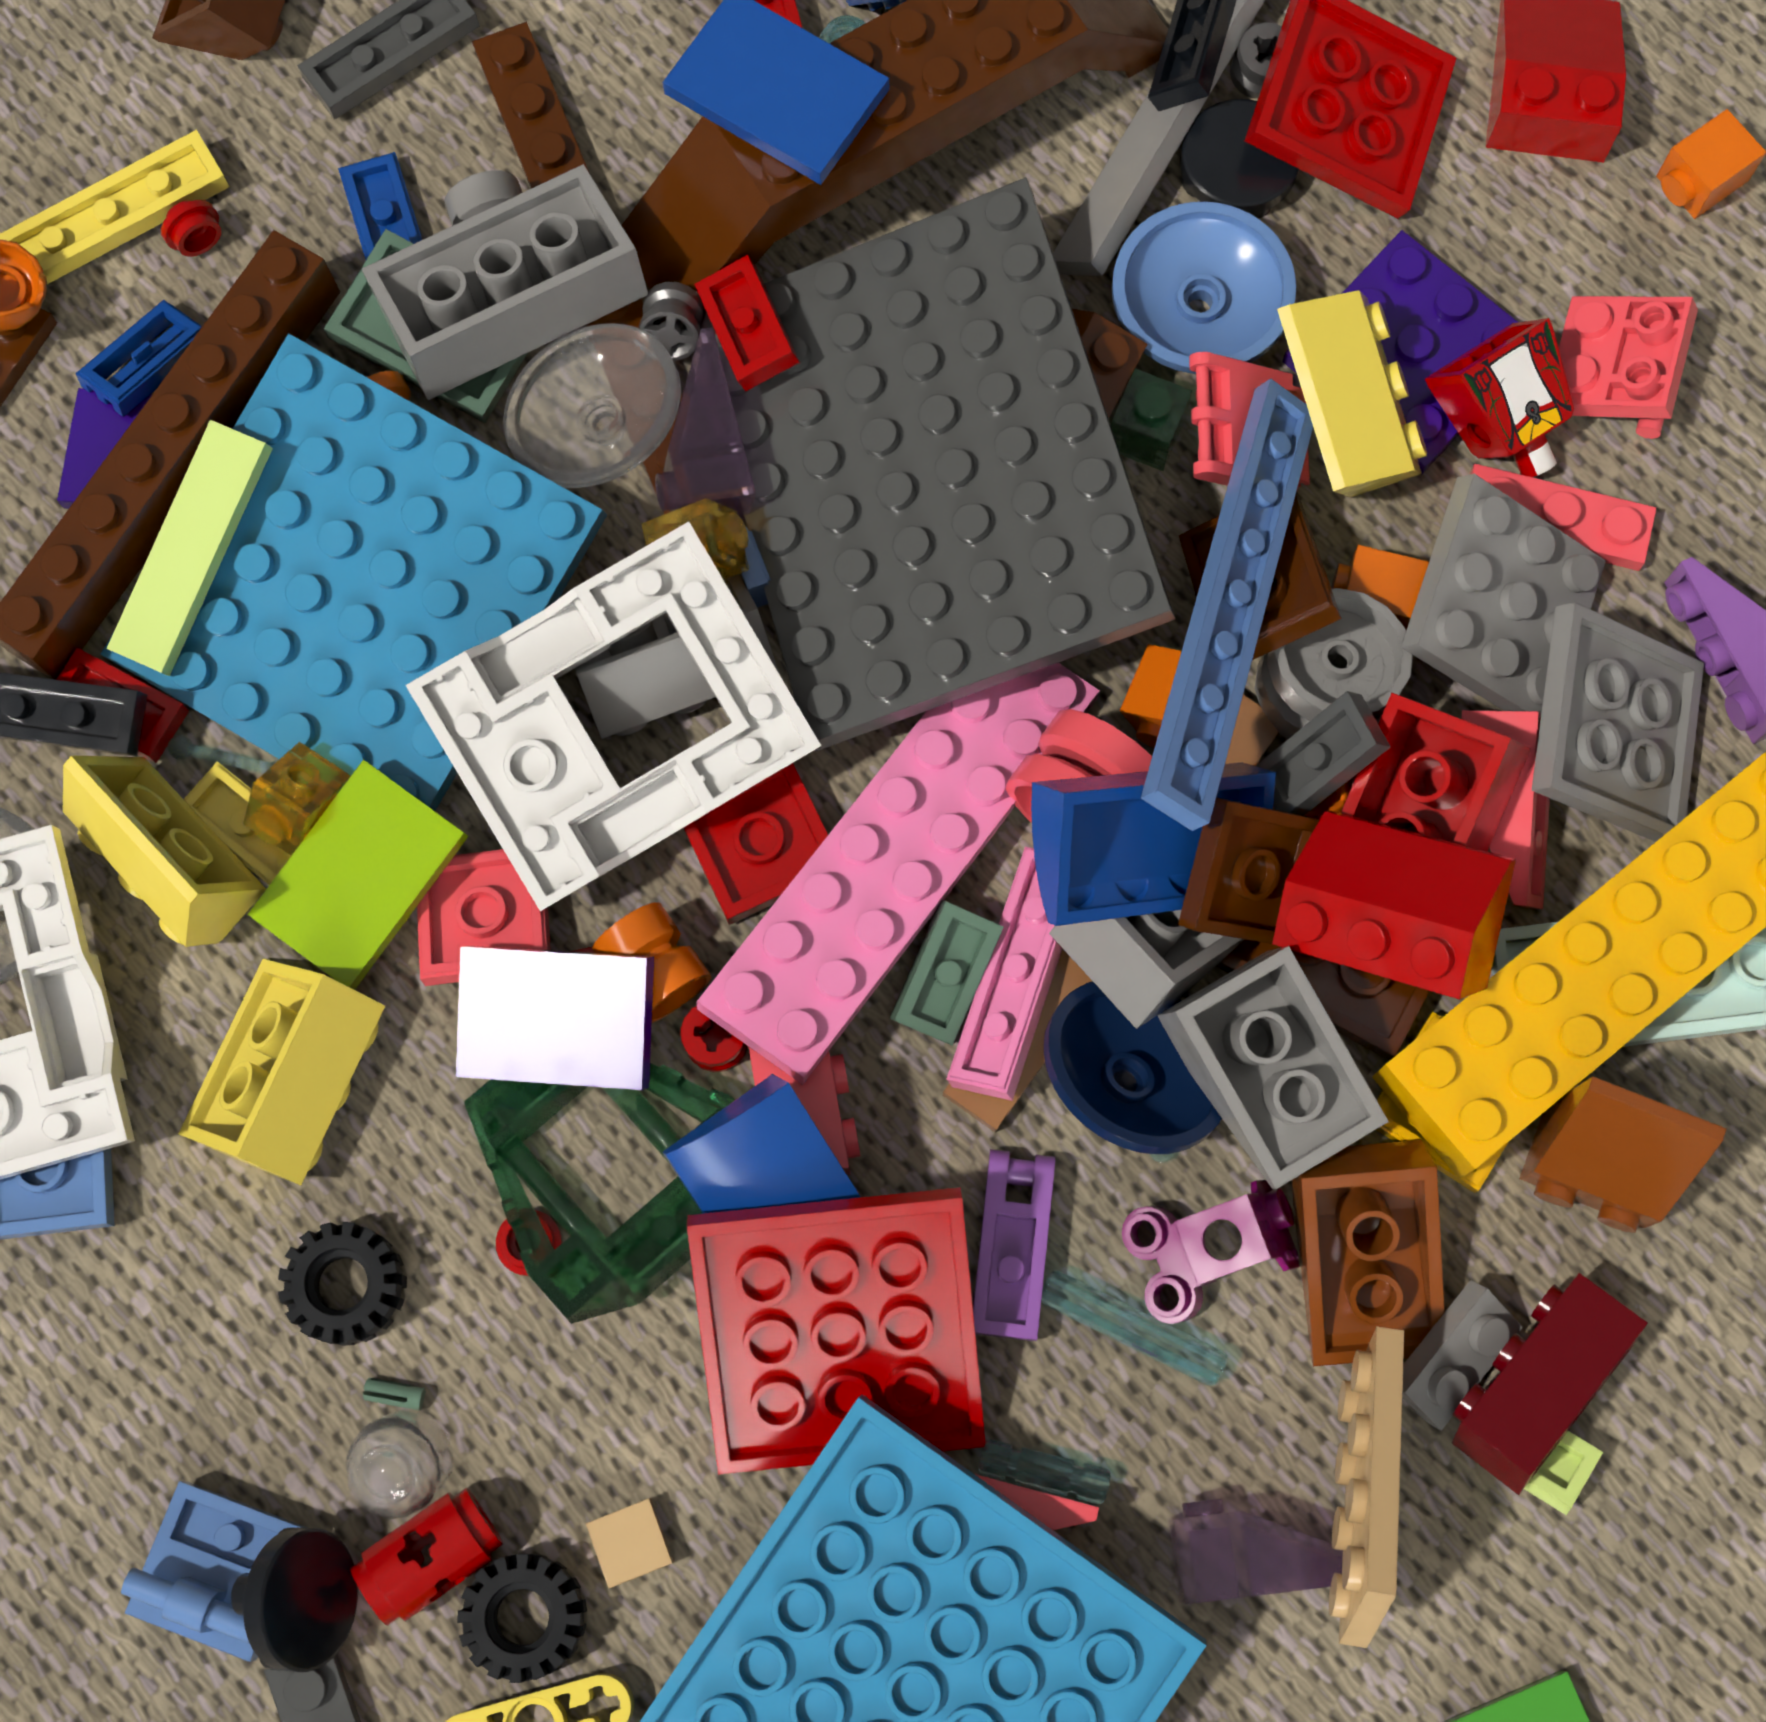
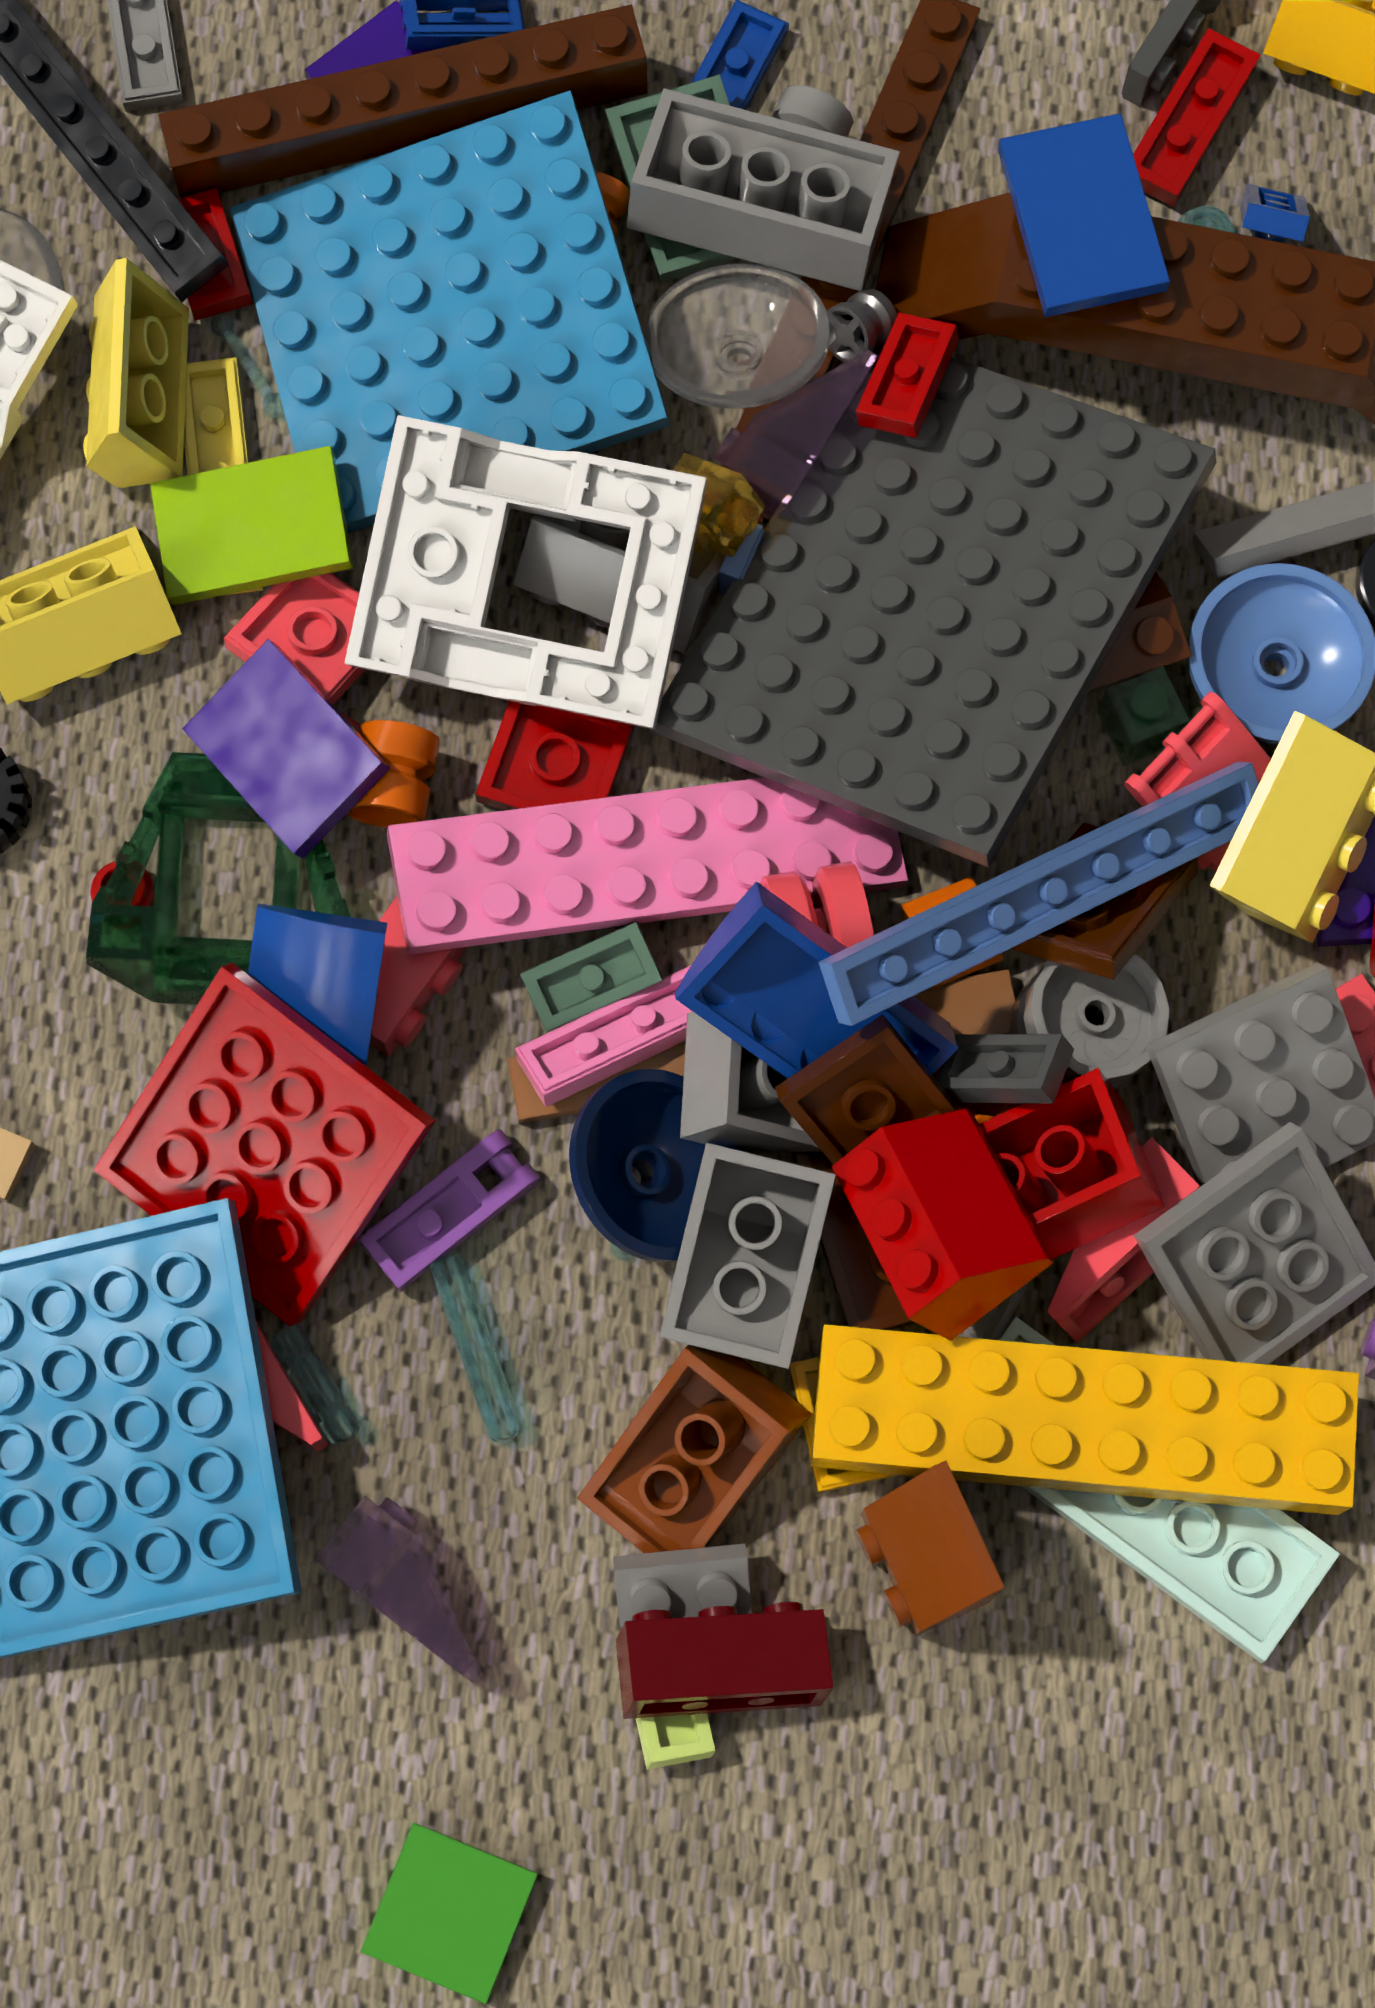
camera: 40 degrees right, 0 degrees up
(189, 547) = (355, 185): yellowish green tile -> none
(293, 797) = (258, 427): clear yellow brick -> none
(712, 1050) = (368, 859): red wheel -> none
(1182, 1252) = (629, 1362): piece -> none
(1371, 1471) = (506, 1600): tan plate -> none
(1384, 577) = (1191, 987): orange brick -> none

